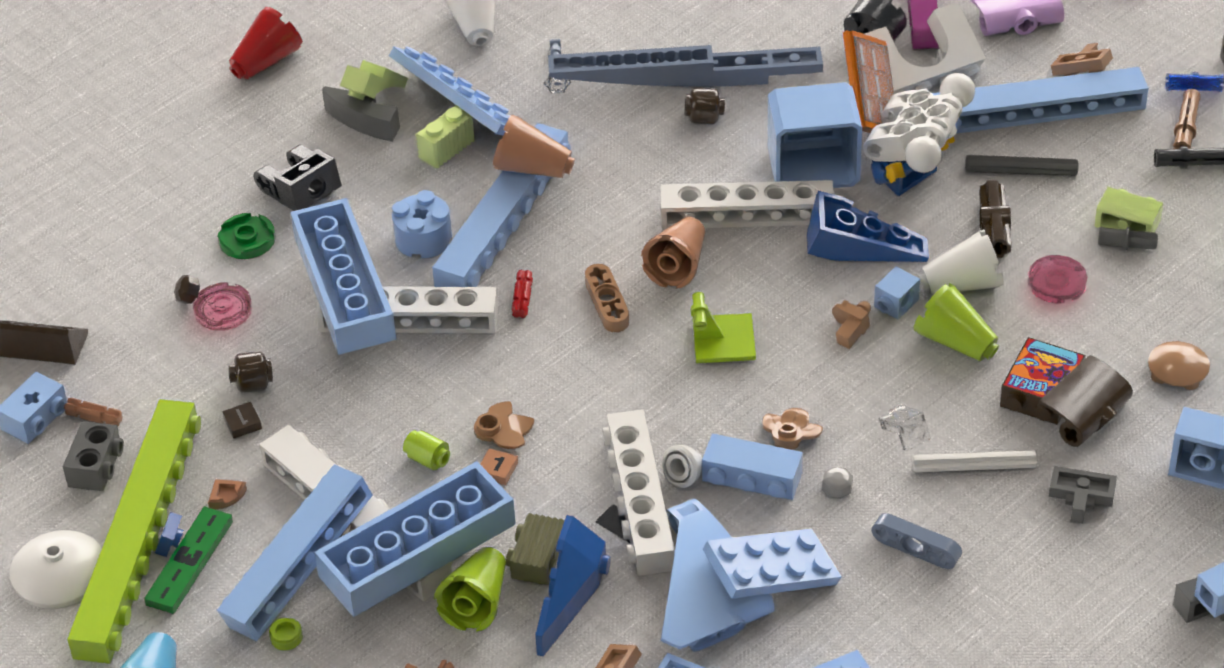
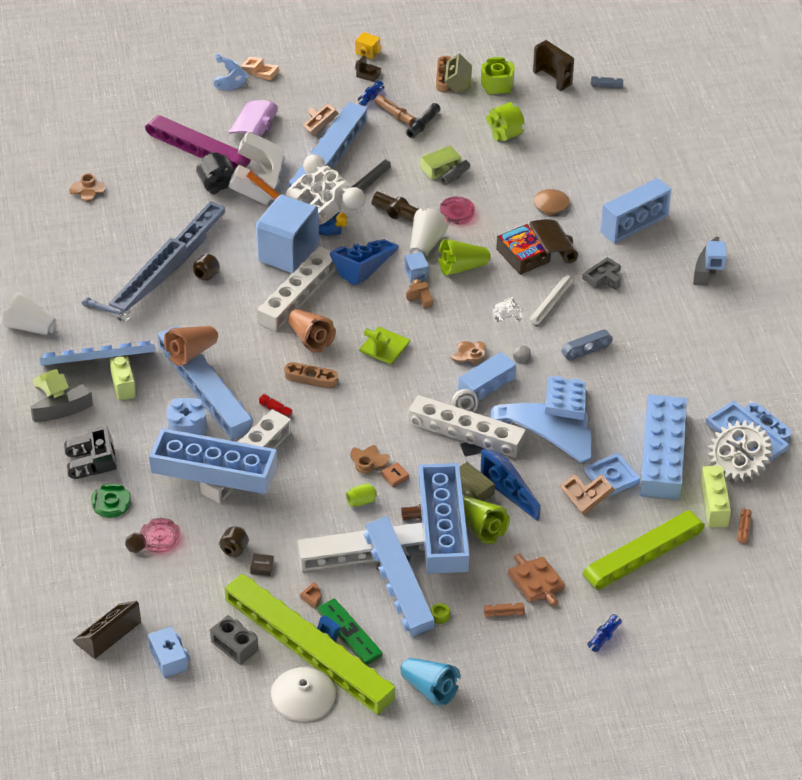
camera: 60 degrees left, 0 degrees up
(92, 412) = (195, 626): nougat axle -> none

